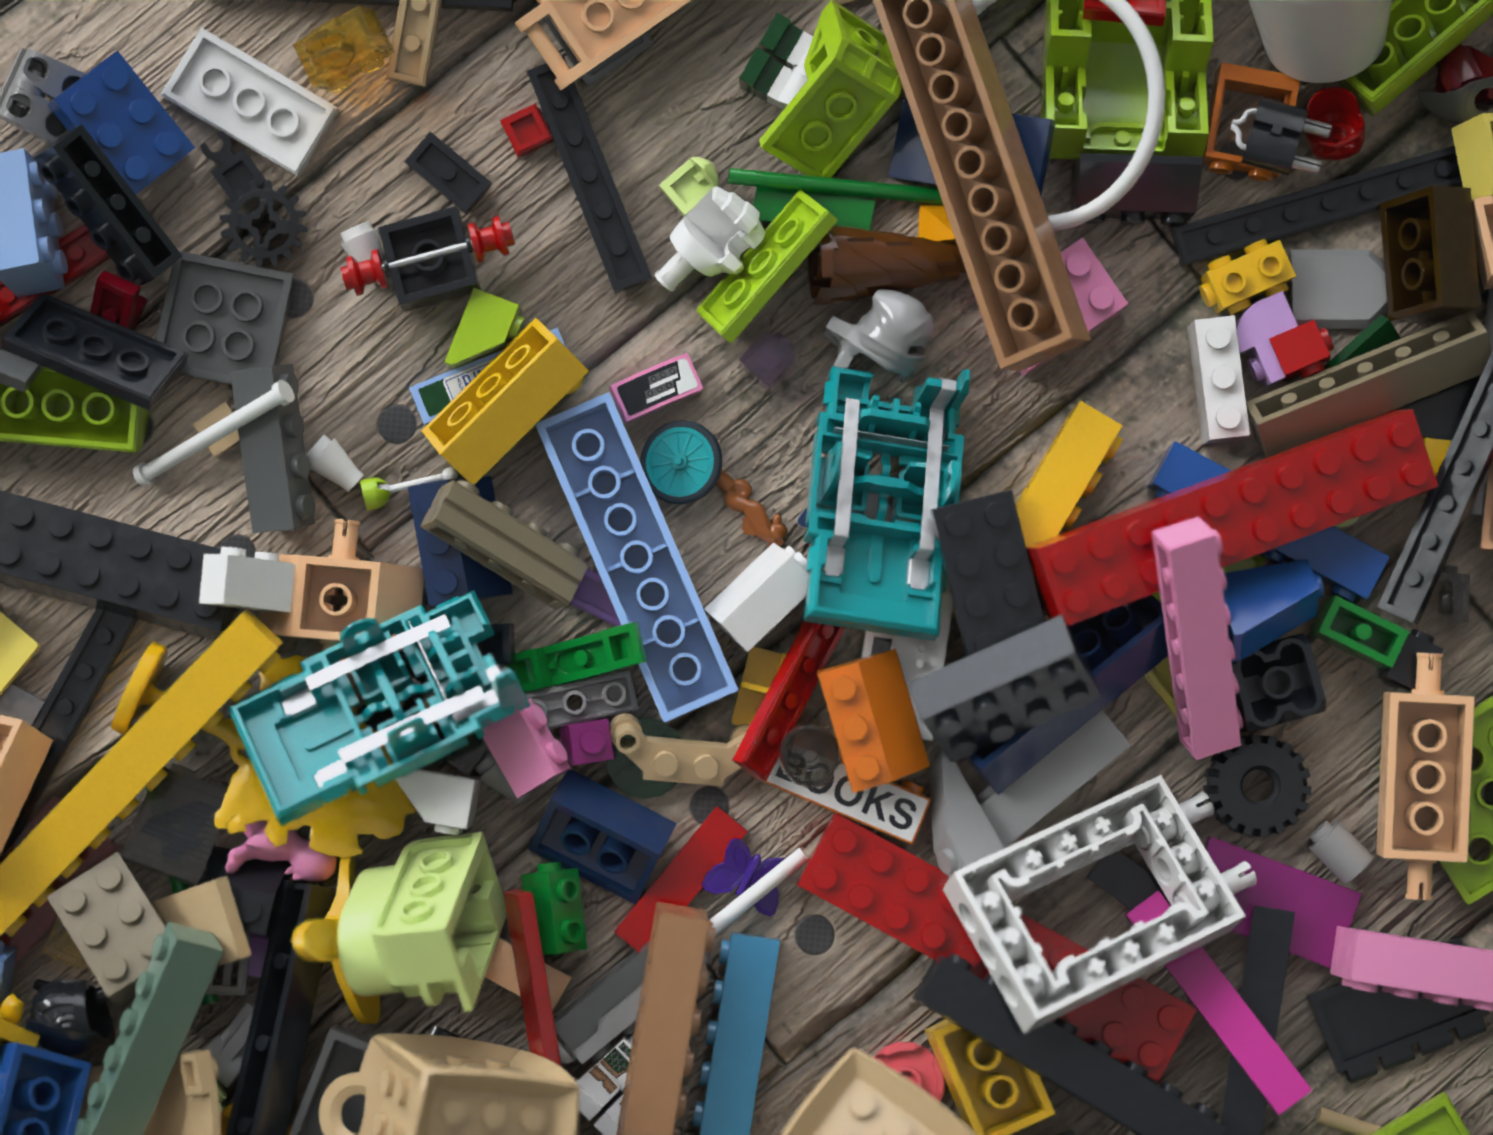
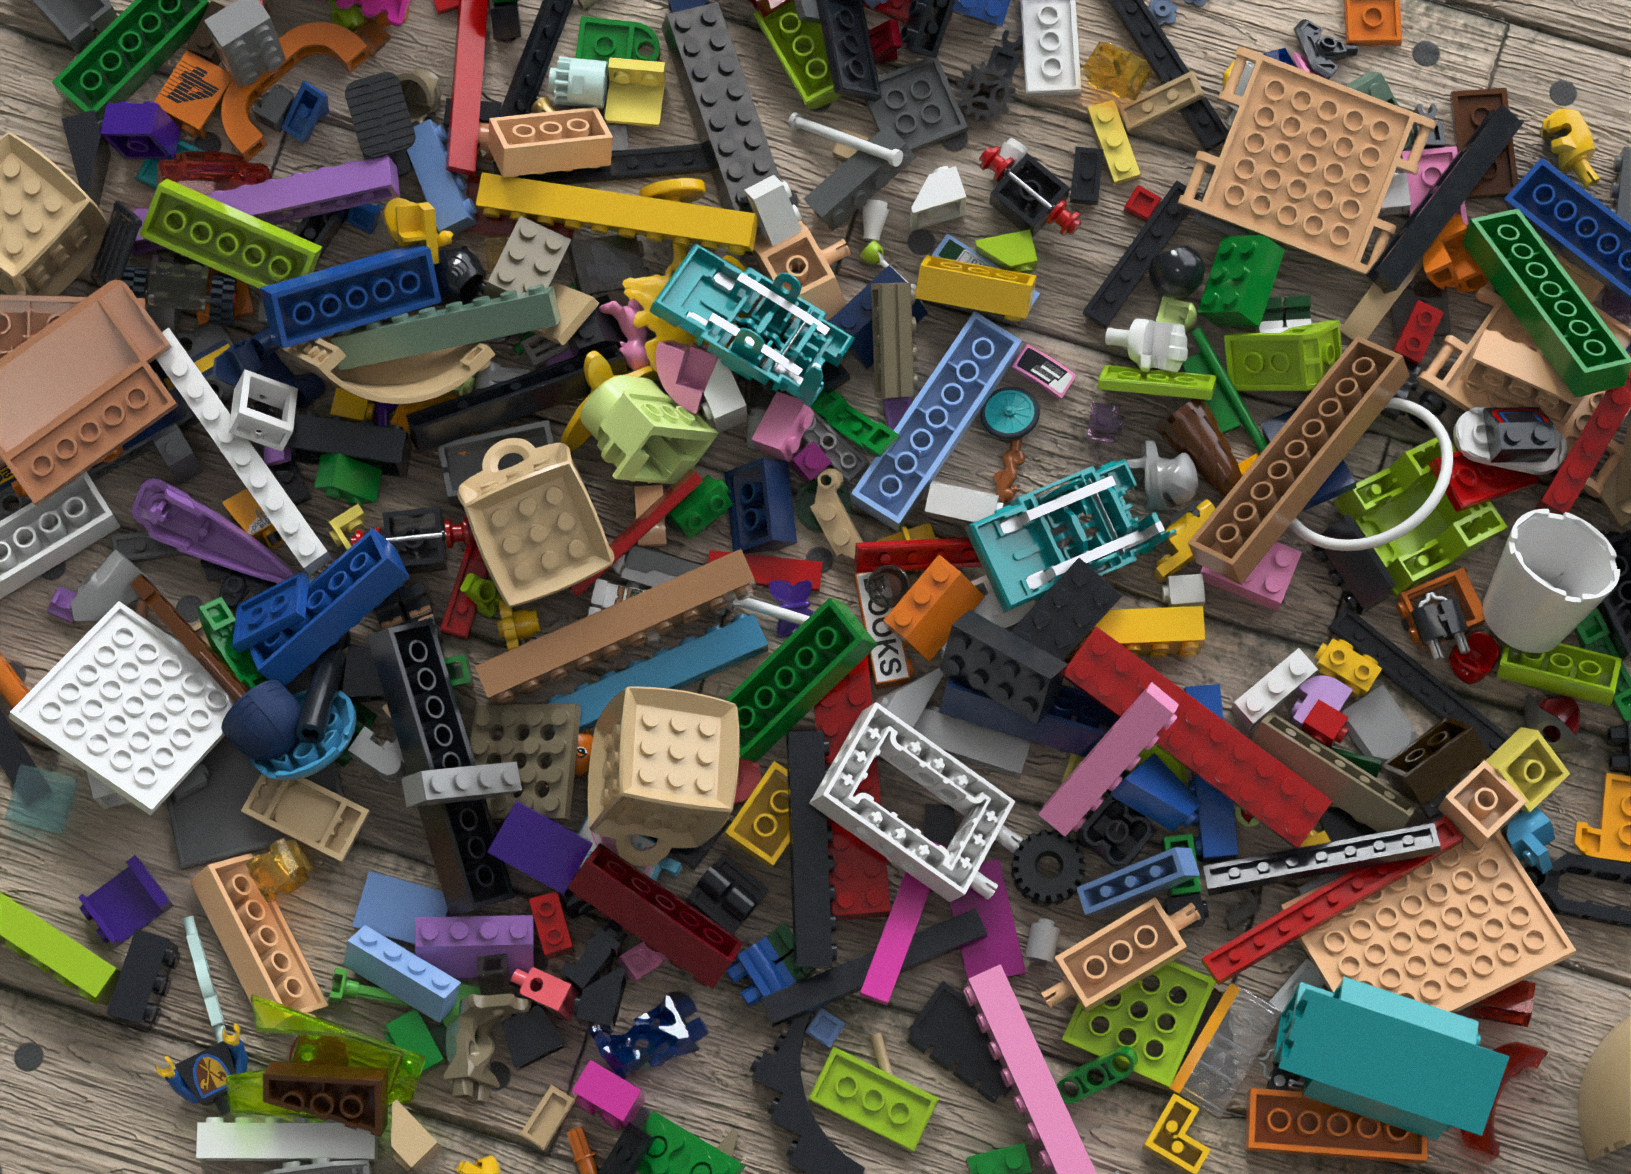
camera: 60 degrees right, 10 degrees down
(363, 369) = (939, 199): none -> white slope
(381, 827) = (685, 372): none -> bright pink brick
(426, 112) = (1114, 141): none -> light yellow plate
(644, 149) = (1177, 272): none -> black helmet
(706, 81) = (1241, 281): none -> green brick
(851, 942) = (798, 676): none -> green brick
(960, 347) = (1186, 523): none -> yellow plate
(1034, 405) = (1184, 591): none -> white brick
(1355, 697) = (1138, 881): none -> medium blue brick

